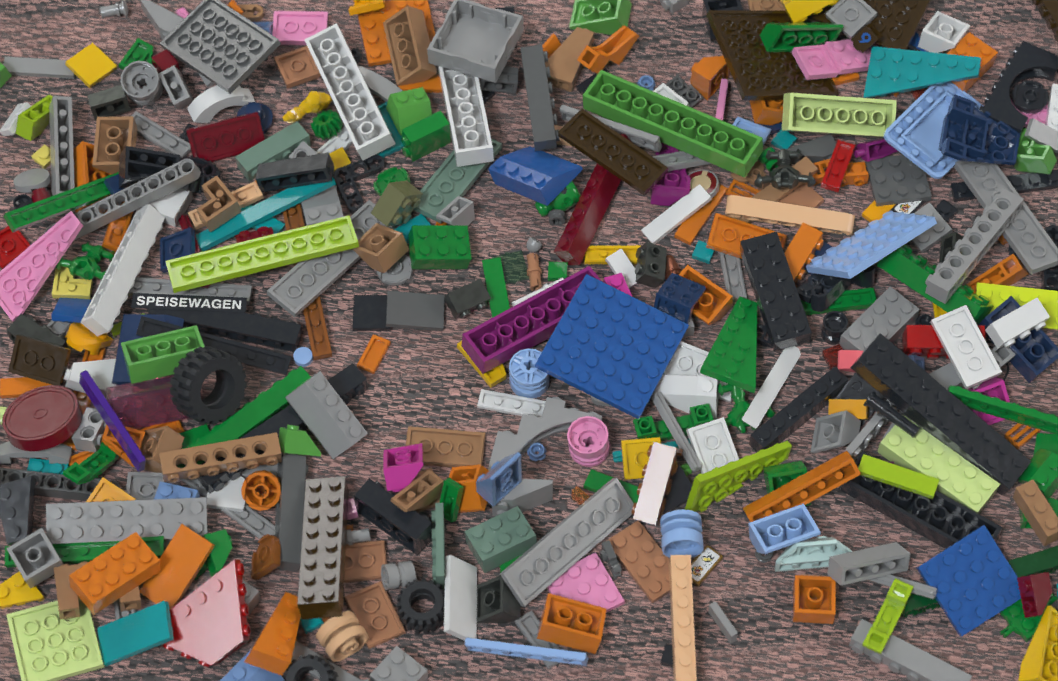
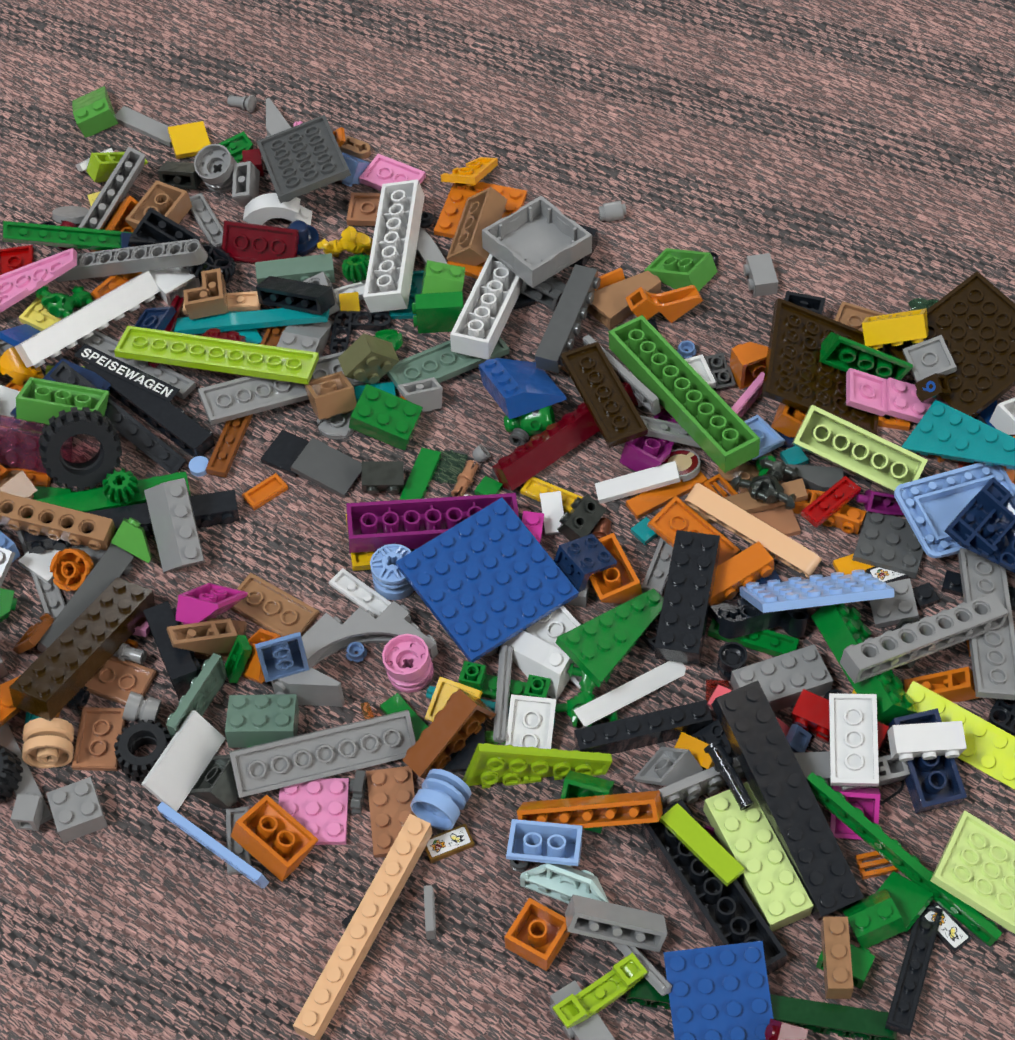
camera: 30 degrees right, 5 degrees down
(253, 405) = (120, 486): none -> green gear

